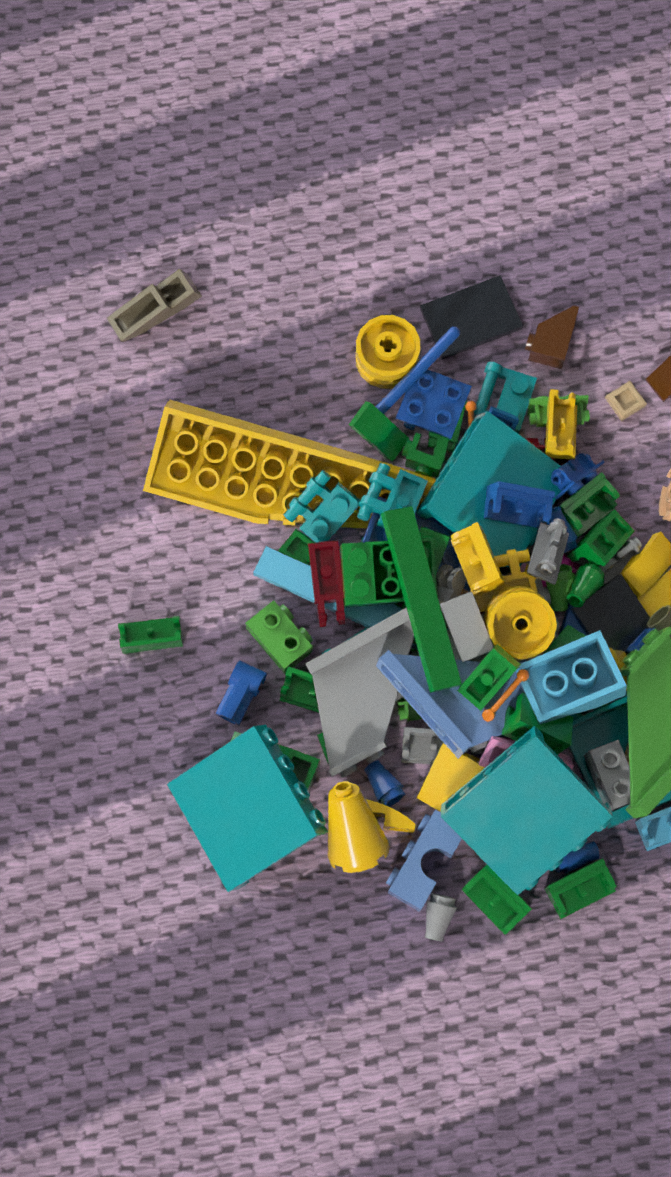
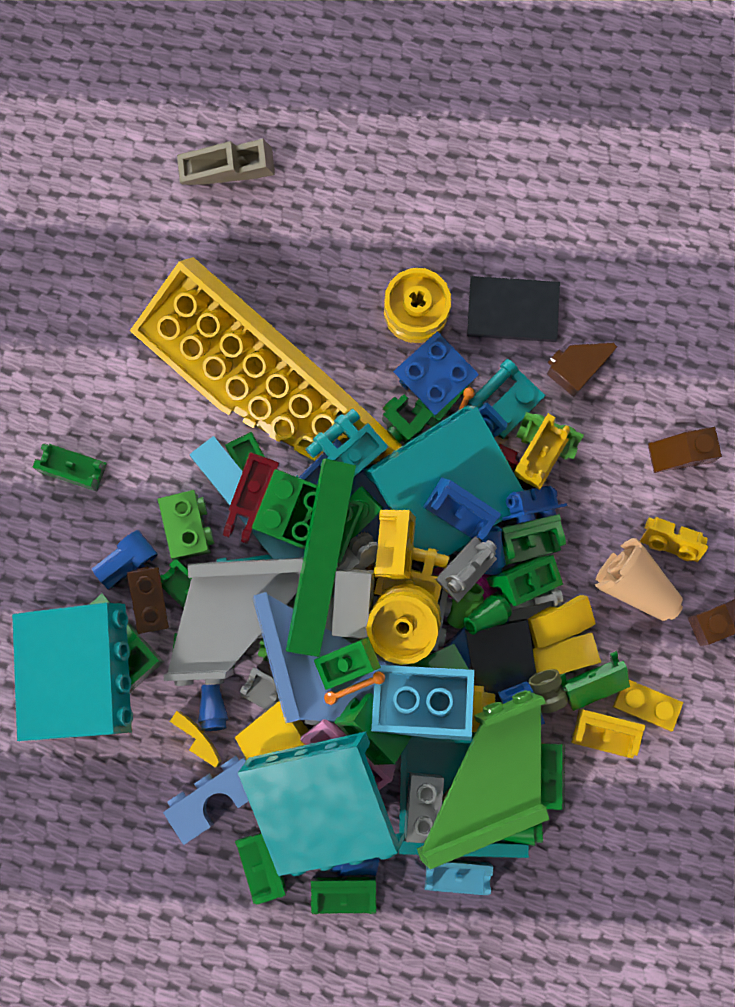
camera: 25 degrees right, 5 degrees up
(281, 714) = (147, 600): none -> reddish brown hinge
(329, 514) = (287, 433): teal plate -> none
(353, 830) = (156, 744): yellow cone -> none
(378, 431) = (371, 376): green tile -> none
(420, 367) = (365, 364): blue piece -> none
(439, 915) = (201, 855): light grey cone -> none
(625, 400) = (618, 455): tan tile -> none

